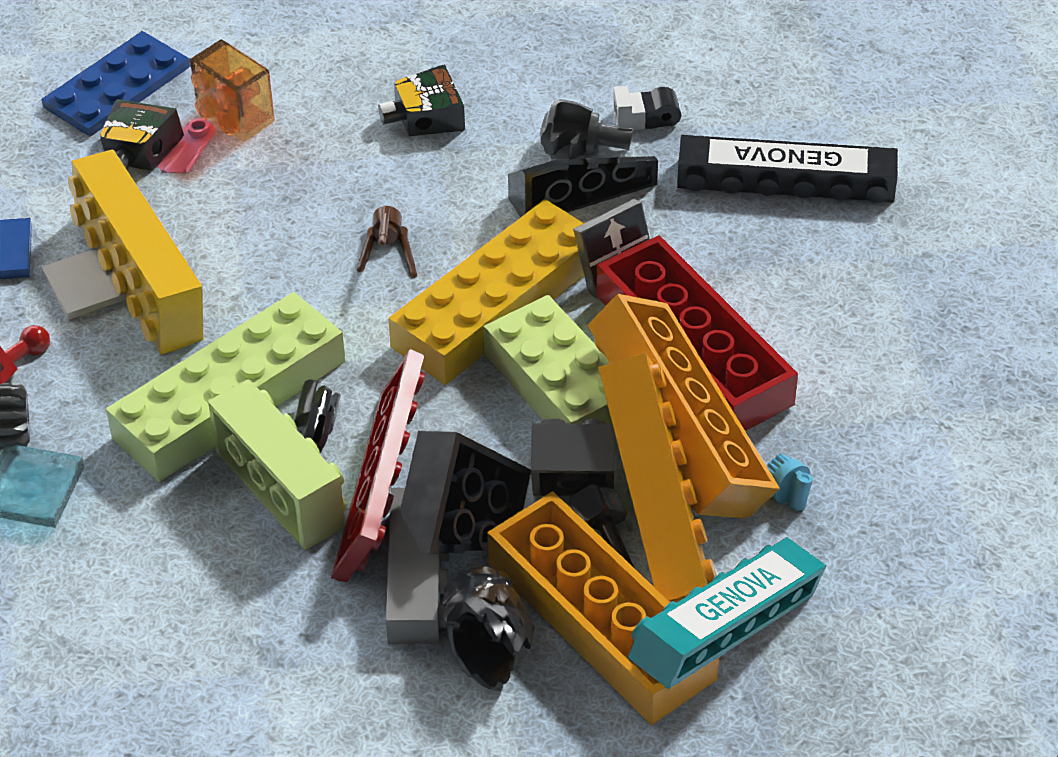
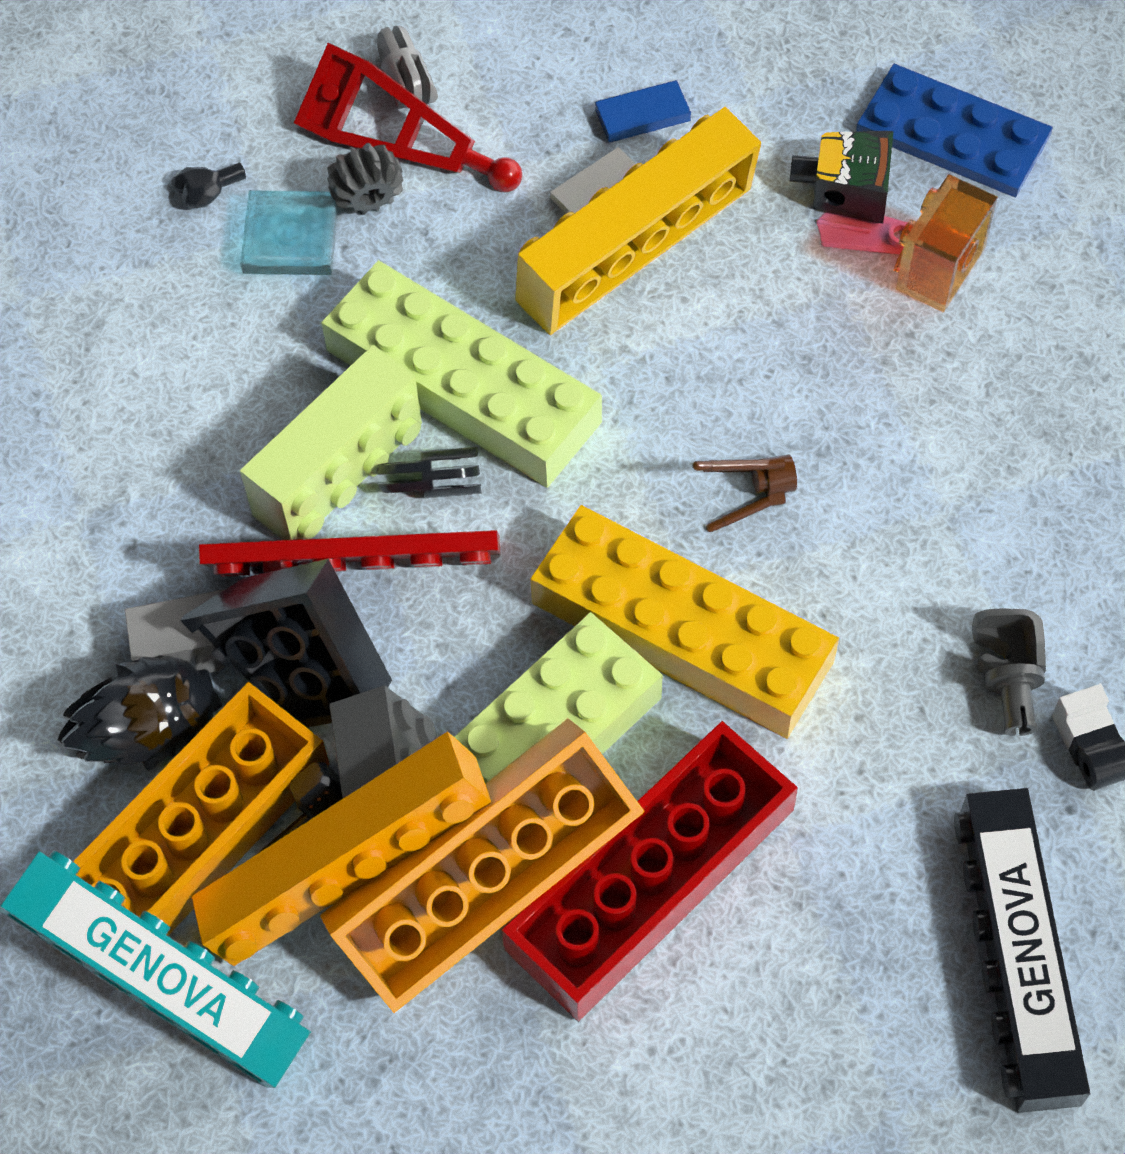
camera: 80 degrees right, 15 degrees up
(425, 104) = (1014, 467): black torso -> none
(580, 182) = (890, 651): black wedge -> none
(608, 237) = (782, 734): tile -> none
(792, 479) = (430, 1024): medium azure piece -> none

